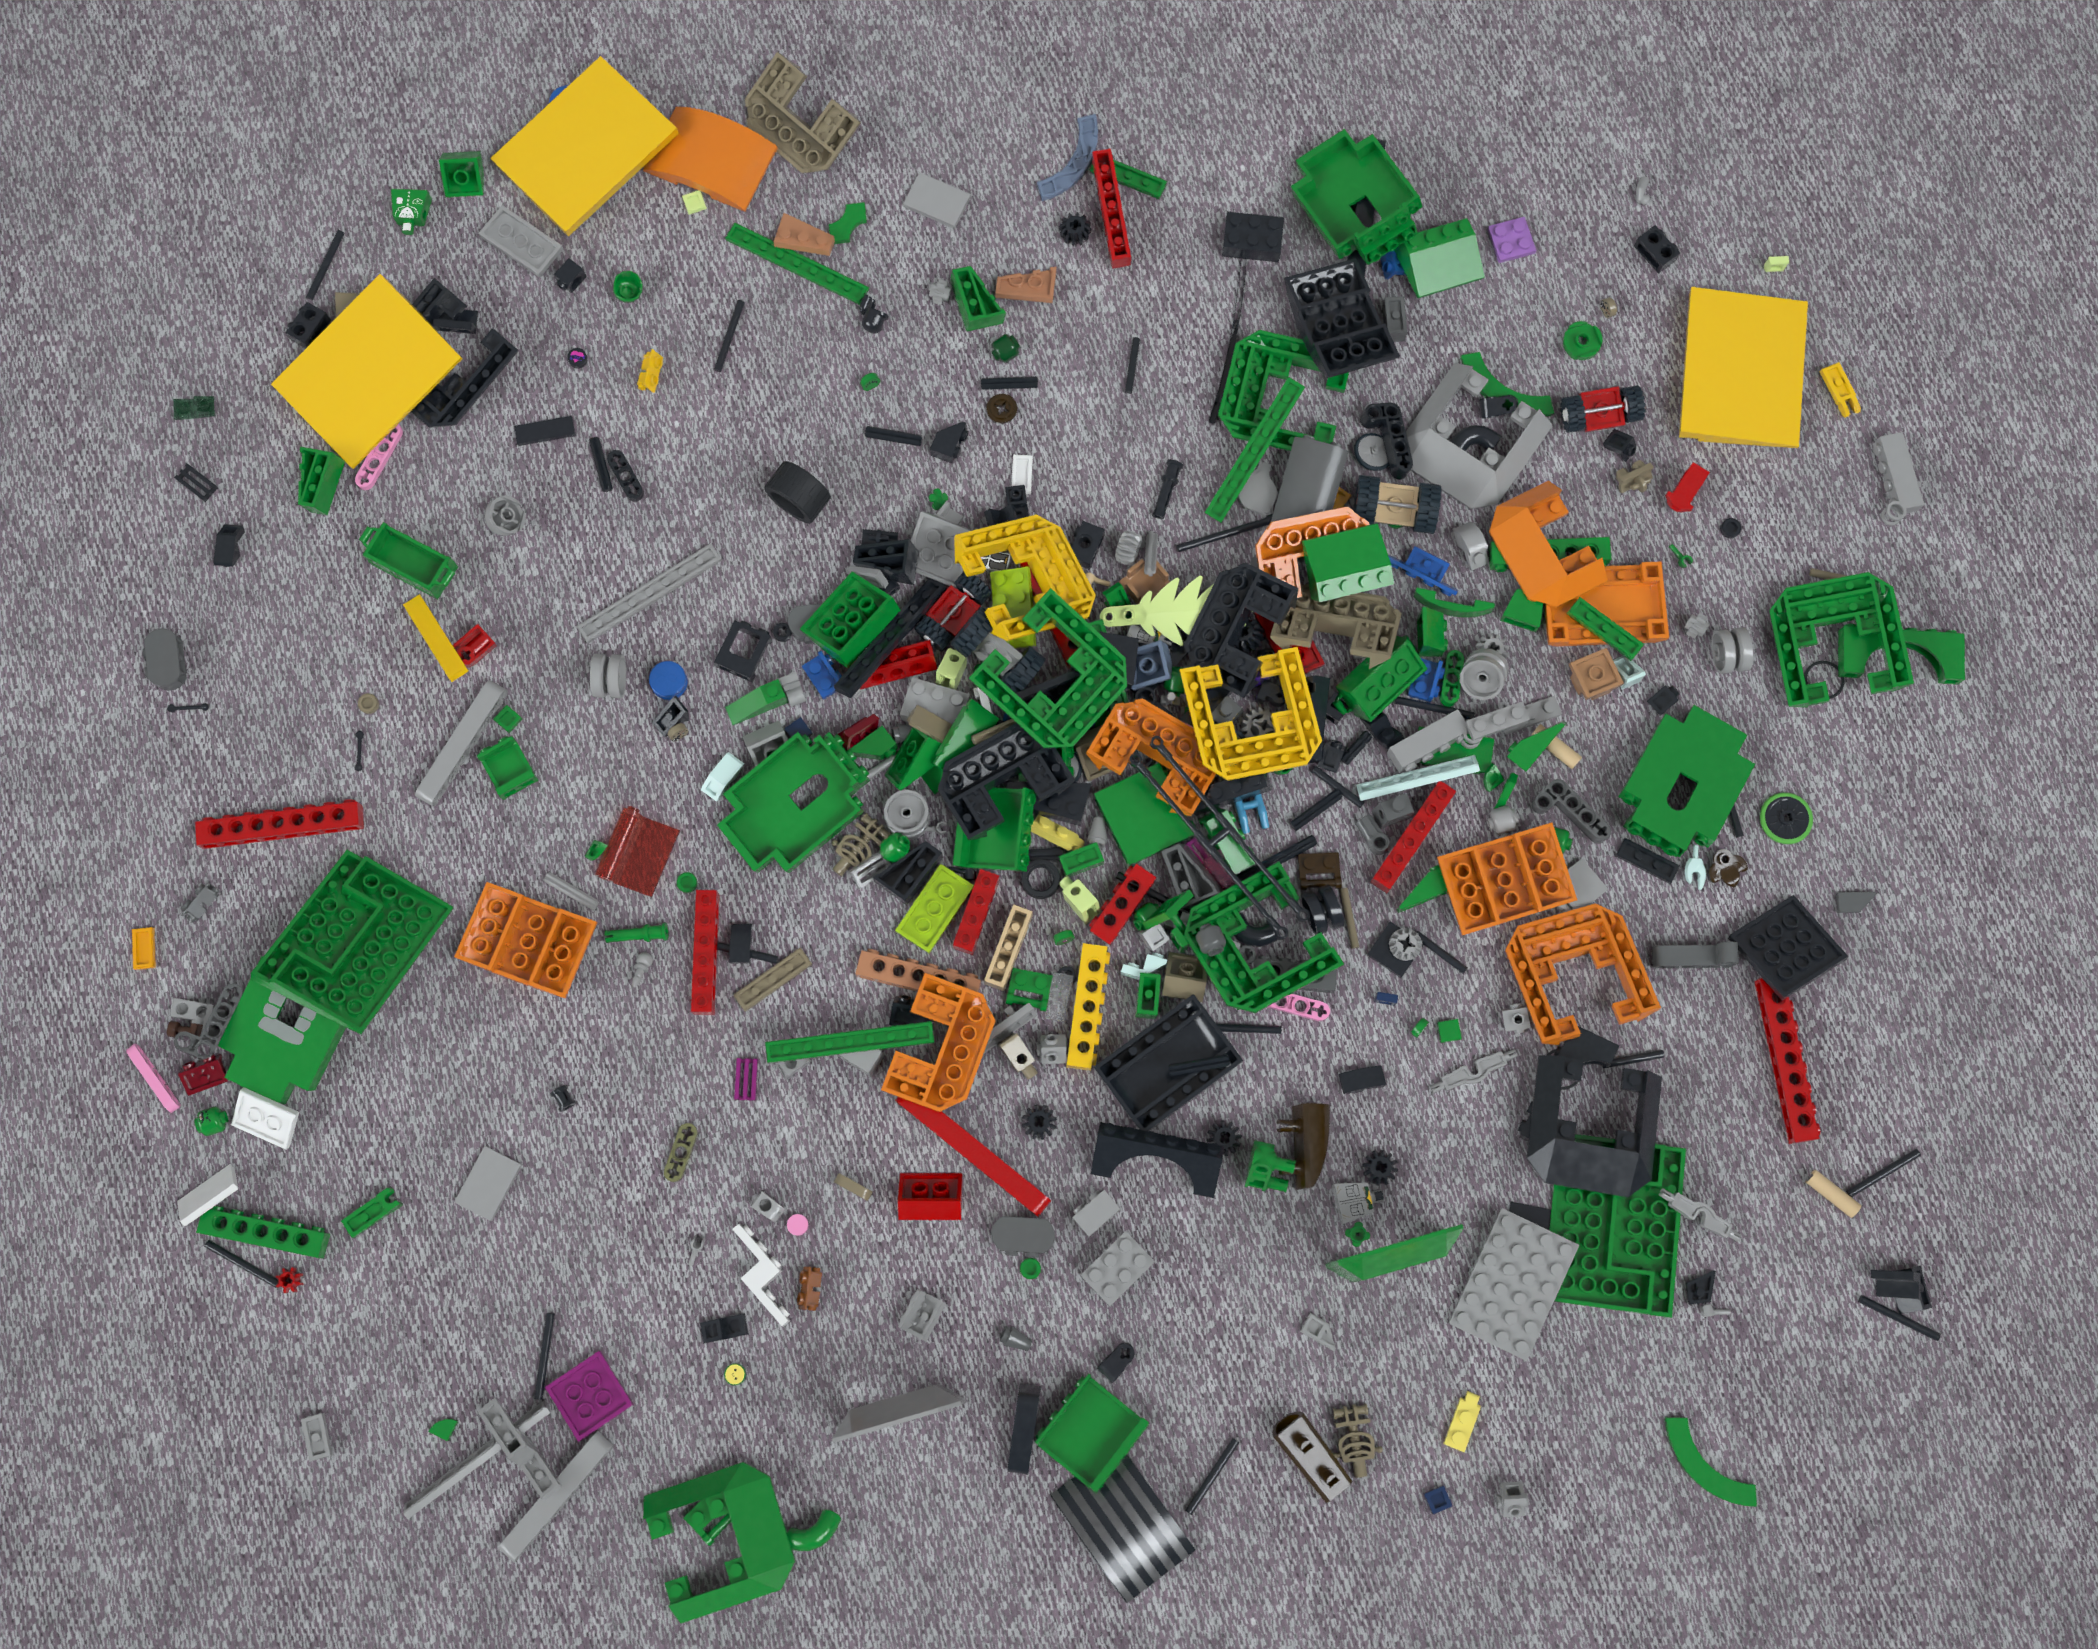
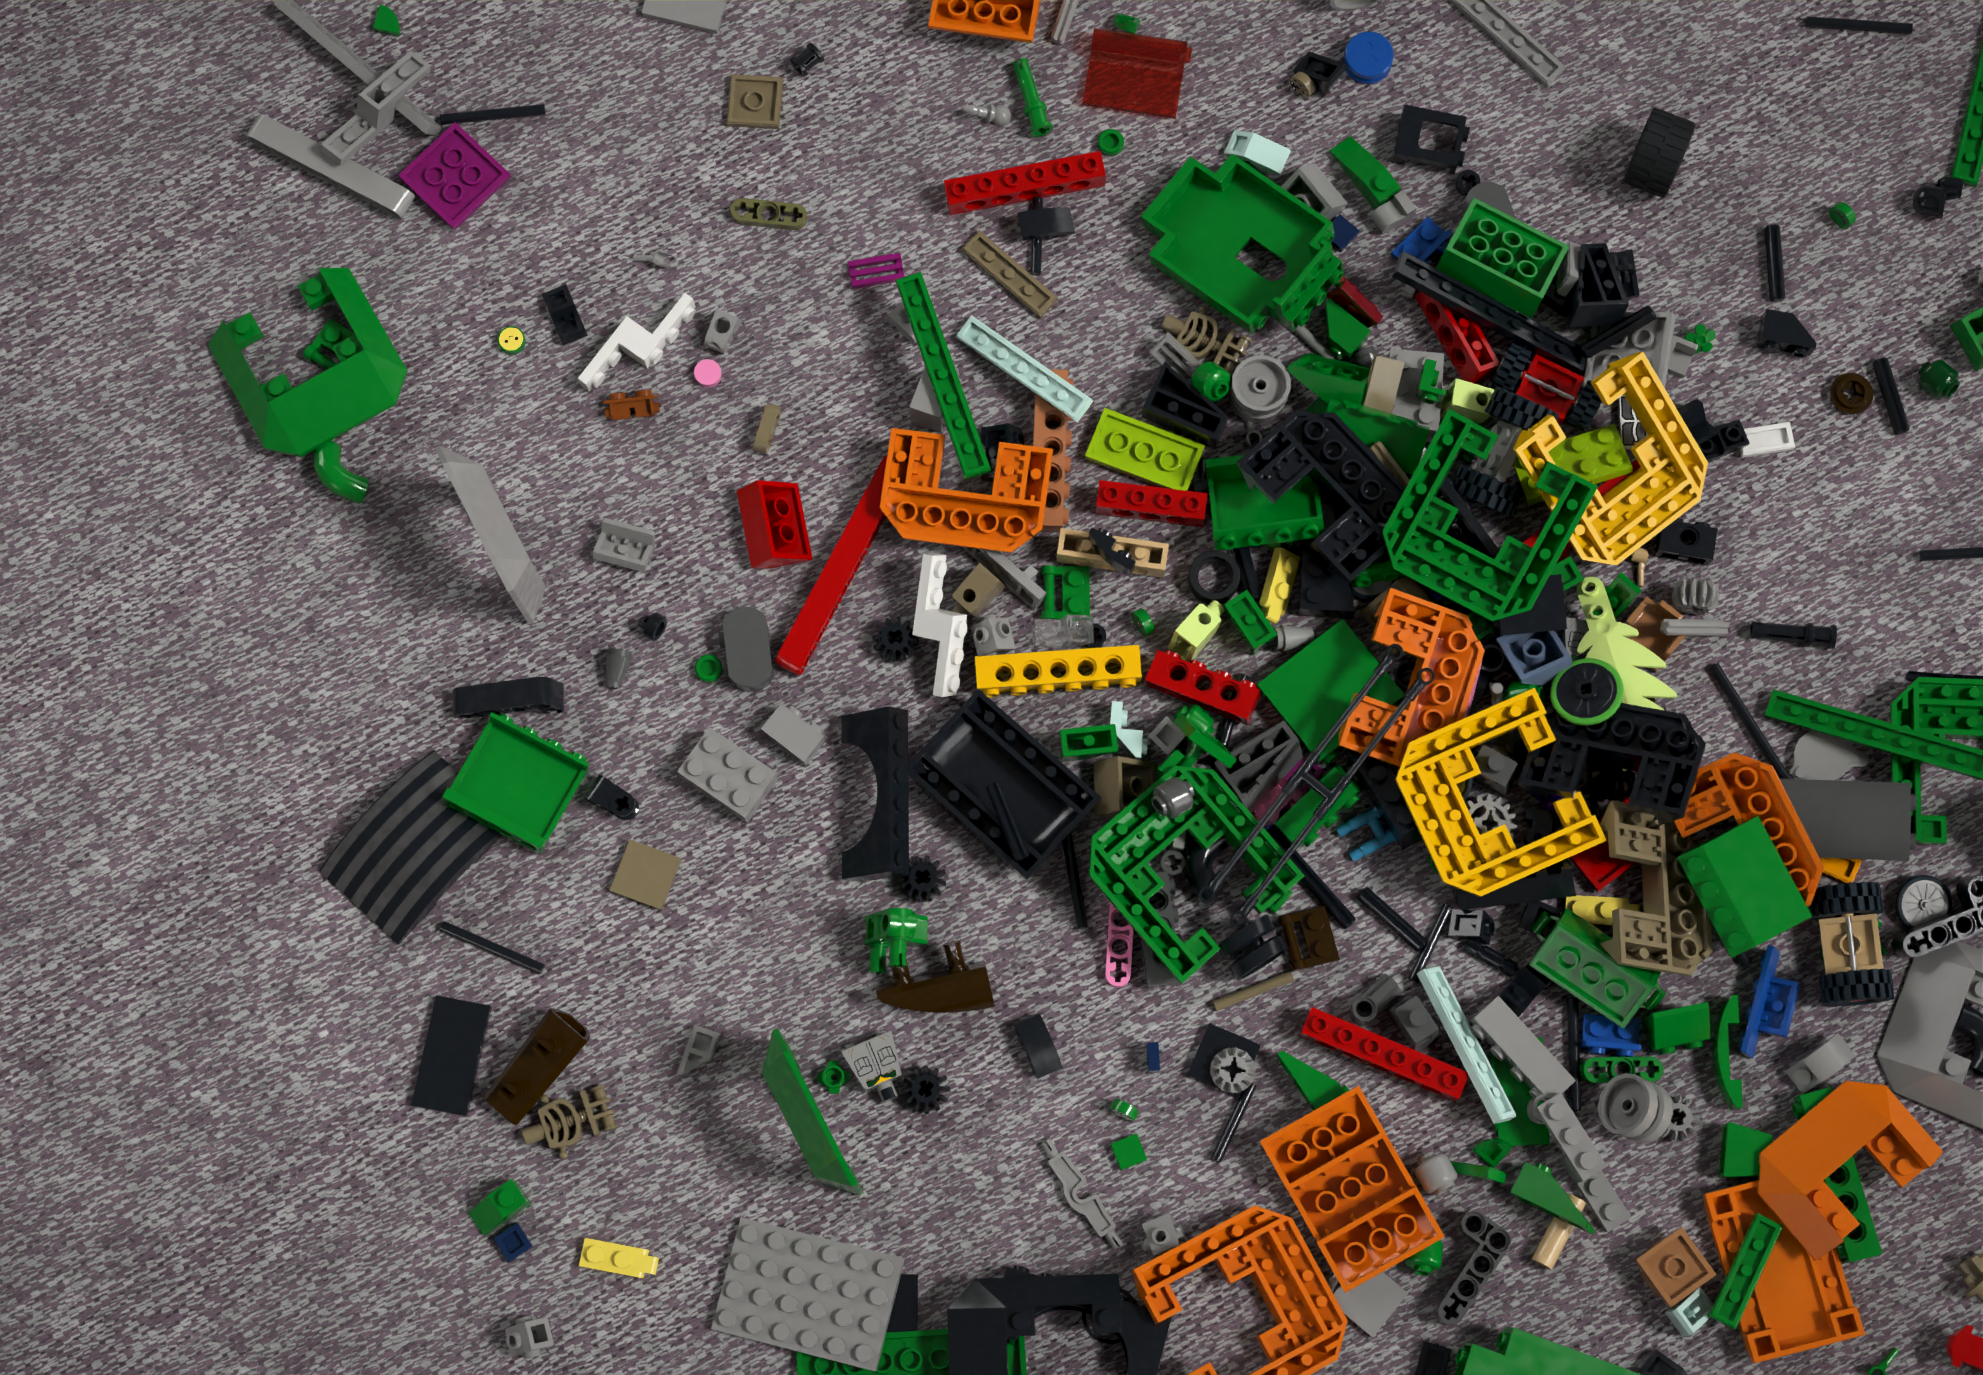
camera: 80 degrees right, 0 degrees up
(586, 1145) = (755, 101): none -> dark tan tile
(853, 982) = (1024, 369): none -> light aqua tile
(924, 553) = (1618, 331): none -> black axle
(933, 693) = (1427, 379): none -> green bracket
(990, 1303) = (653, 625): none -> black tile
(1007, 950) = (1105, 544): none -> black slope
(1037, 1085) = (939, 624): none -> white bracket
(1179, 1347) = (645, 875): none -> dark tan tile
(1199, 635) = (1587, 708): none -> black wheel
(1289, 1522) = (451, 1056): none -> black tile
(1338, 663) = (1597, 909): none -> light yellow hinge
(1411, 1505) = (499, 1207): none -> green slope

